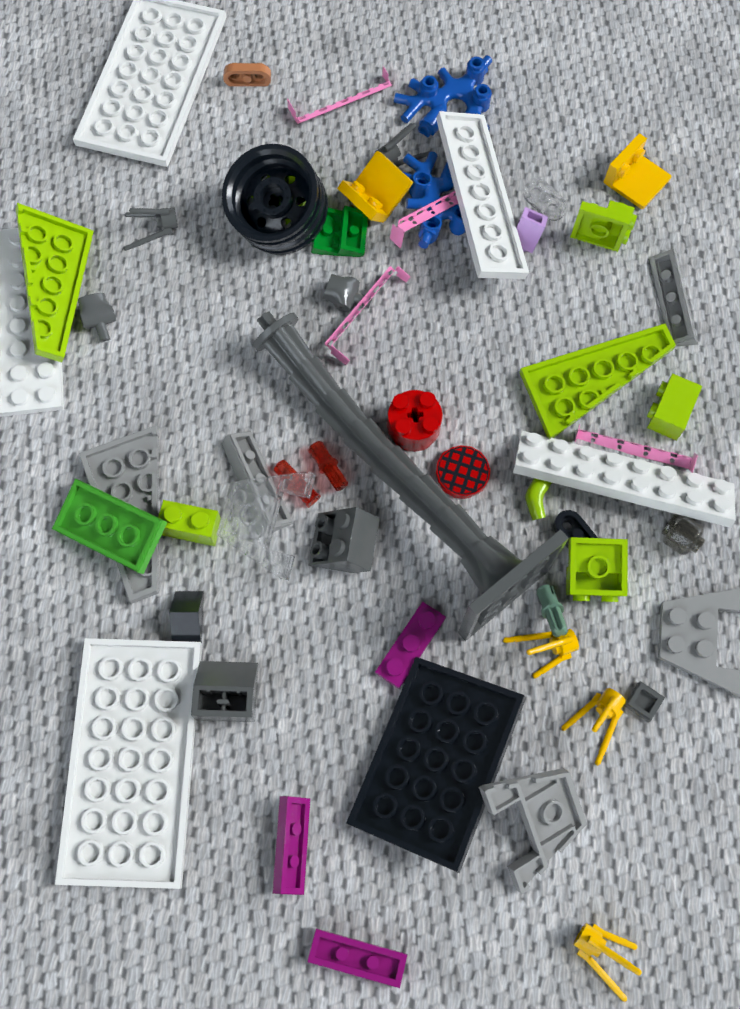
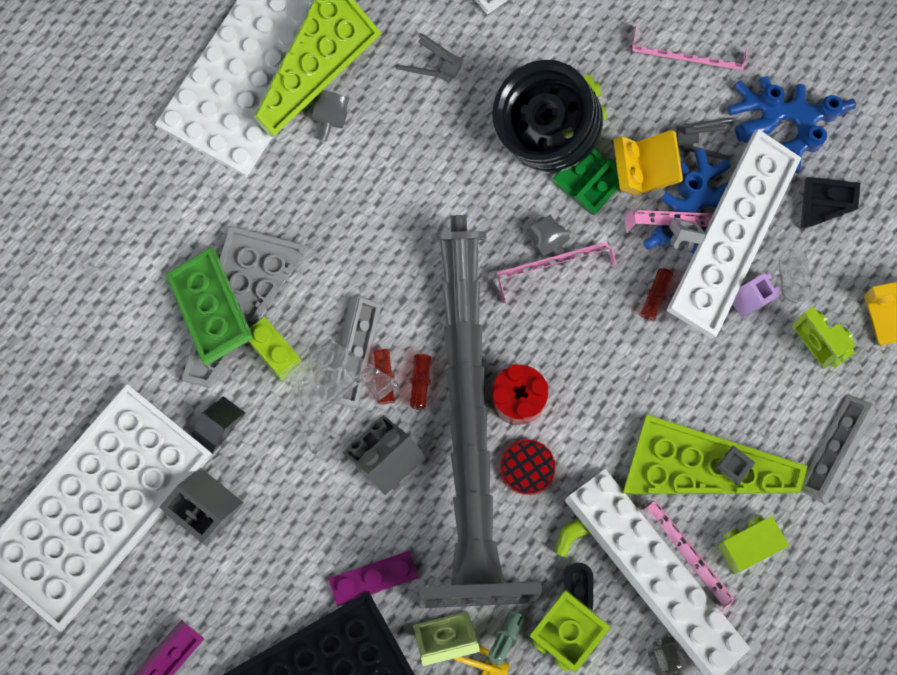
camera: 35 degrees right, 5 degrees up
(447, 213) = (686, 231): none -> light grey tile
(457, 279) = (656, 294): none -> clear red axle
(508, 645) = (446, 638): none -> yellowish green tile
(524, 133) = (827, 200): none -> black wing
(615, 358) = (735, 465): none -> dark grey tile

